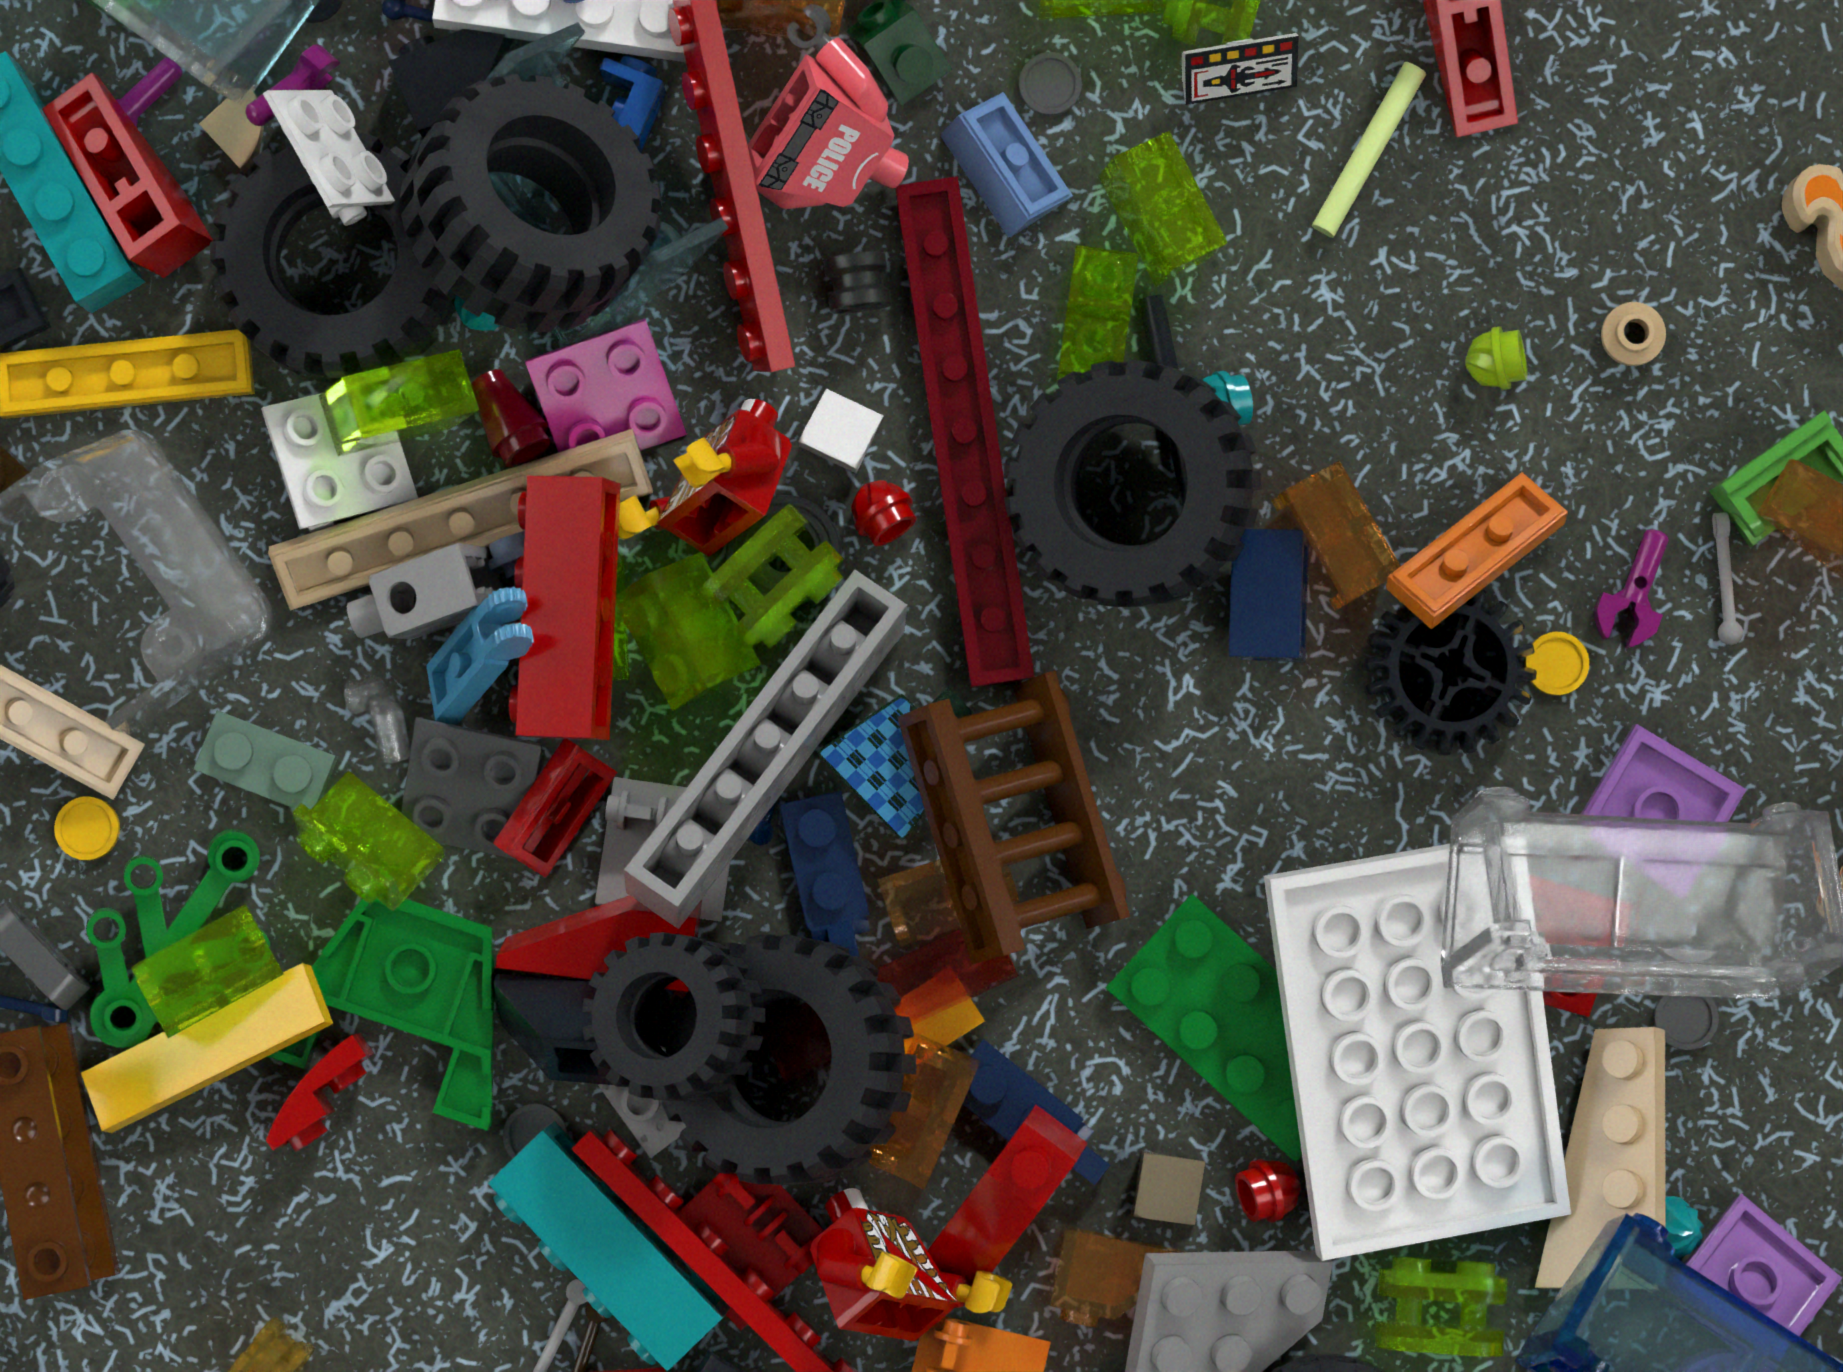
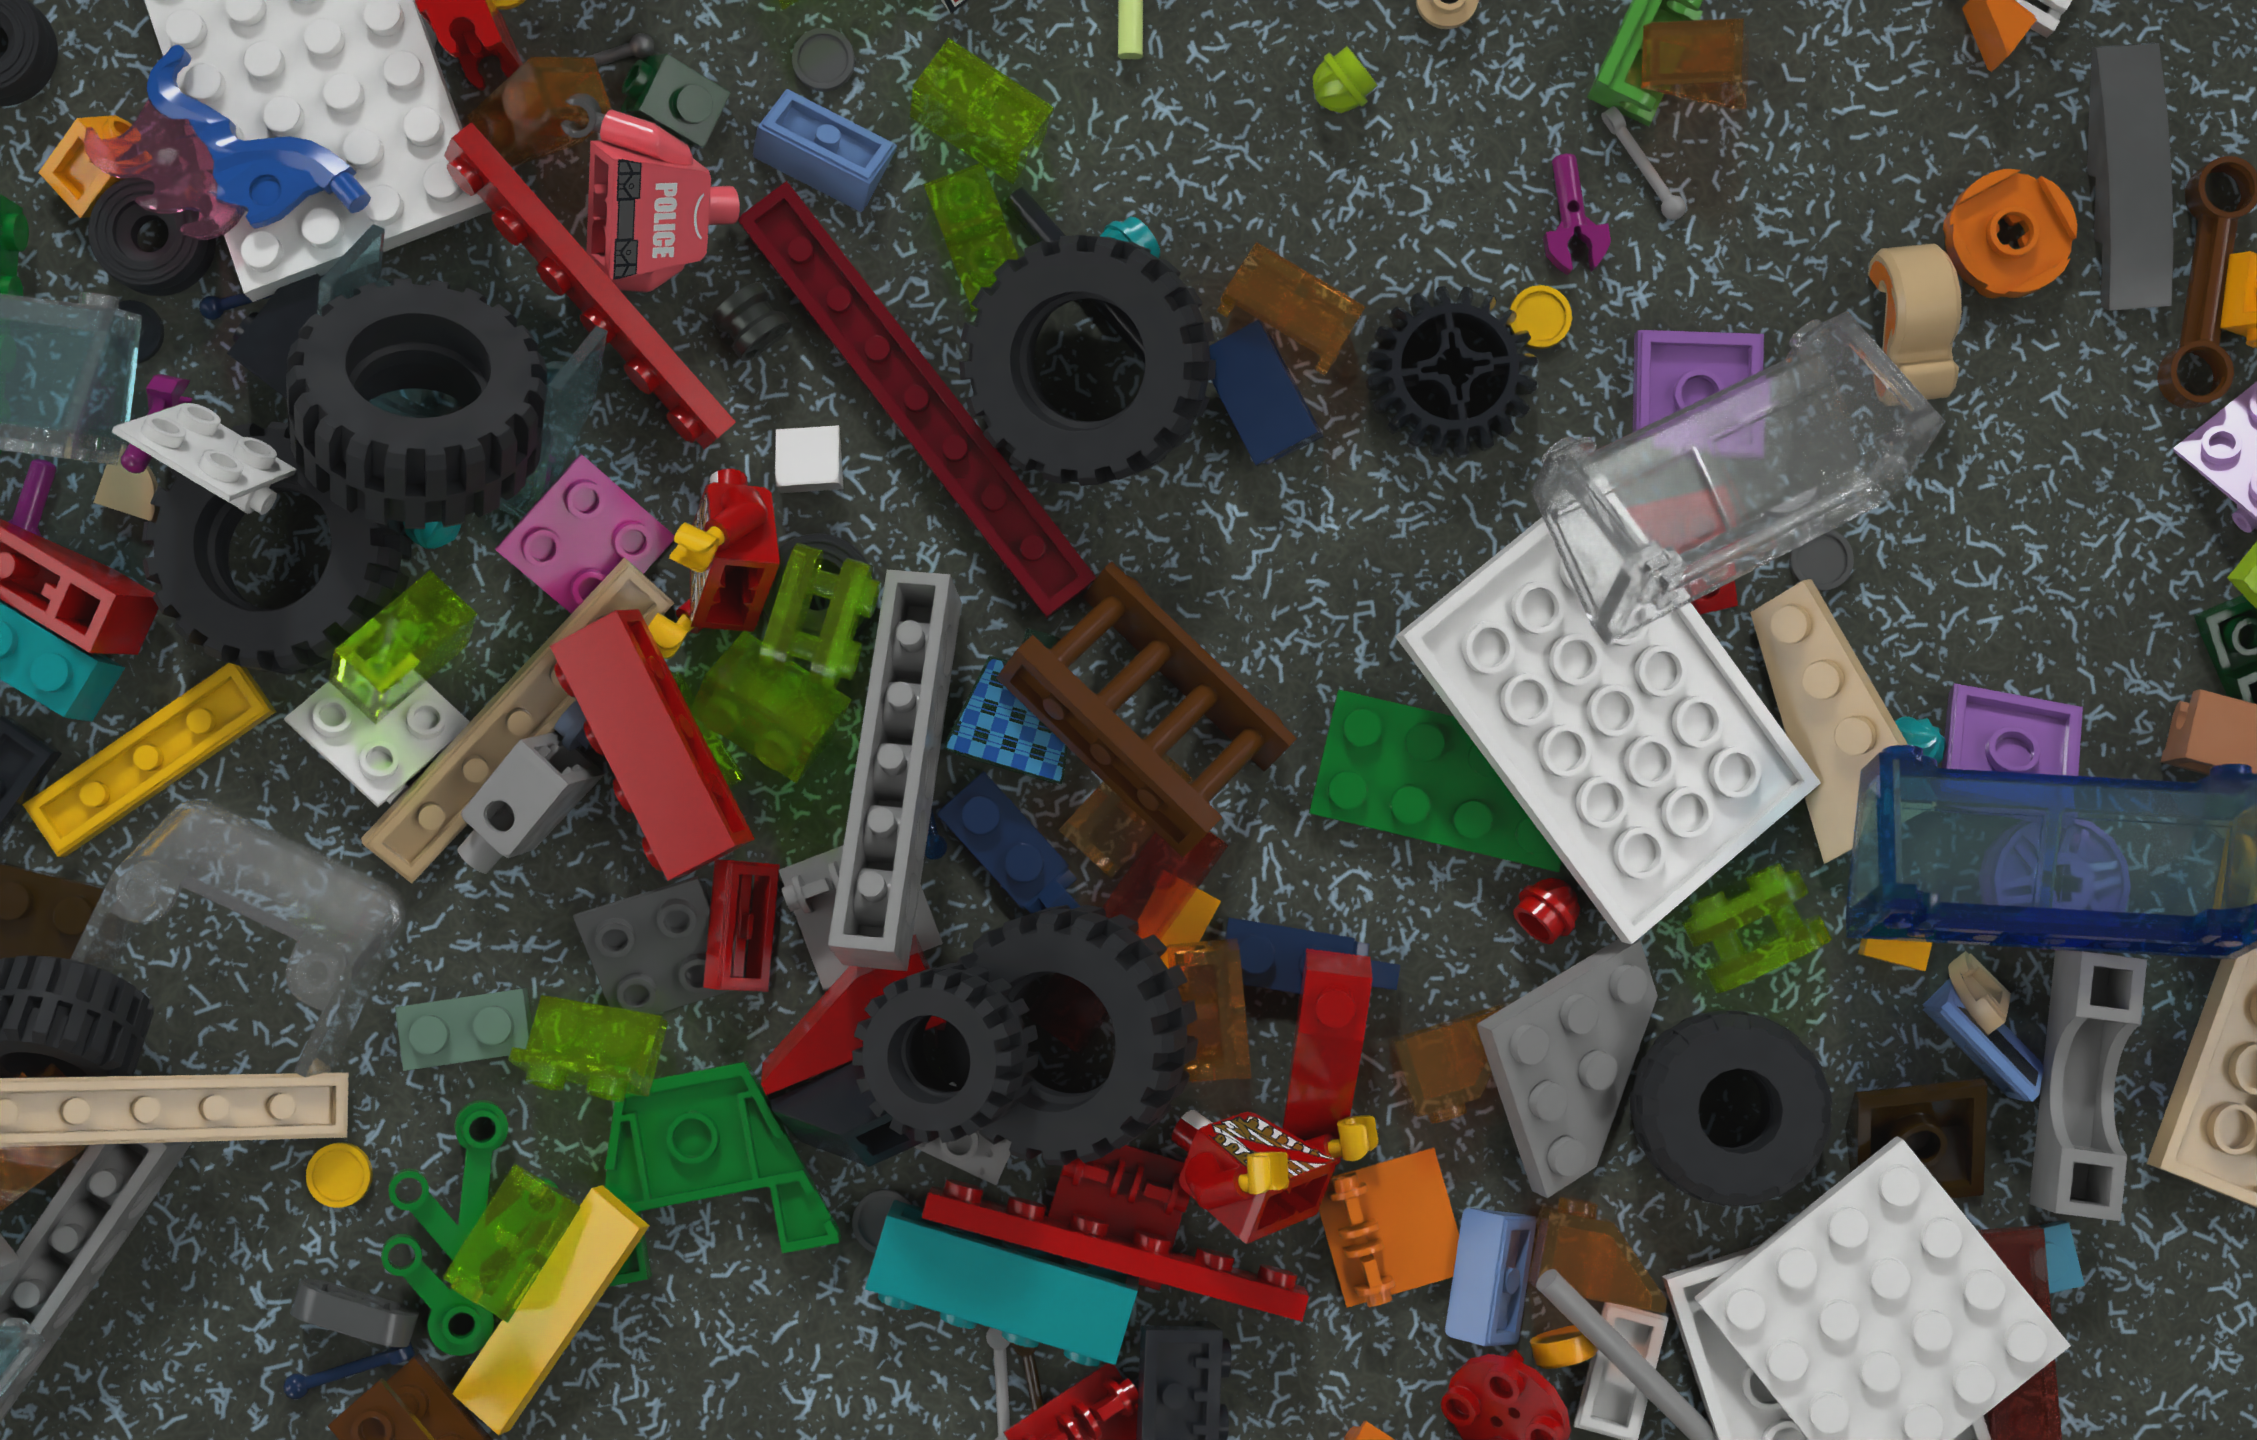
camera: 35 degrees left, 0 degrees up
(303, 1111) = (668, 1309): red slope -> none
(385, 714) = (546, 927): clear arm -> none
(477, 653) = (595, 827): dark azure hinge -> none
(509, 420) = (513, 610): dark red cone -> none
(644, 98) = (470, 257): blue bracket -> none
(882, 512) = (884, 508): red plate -> none
(1168, 1188) = (1460, 957): dark tan slope -> none
(1476, 550) = (1418, 255): orange tile -> none

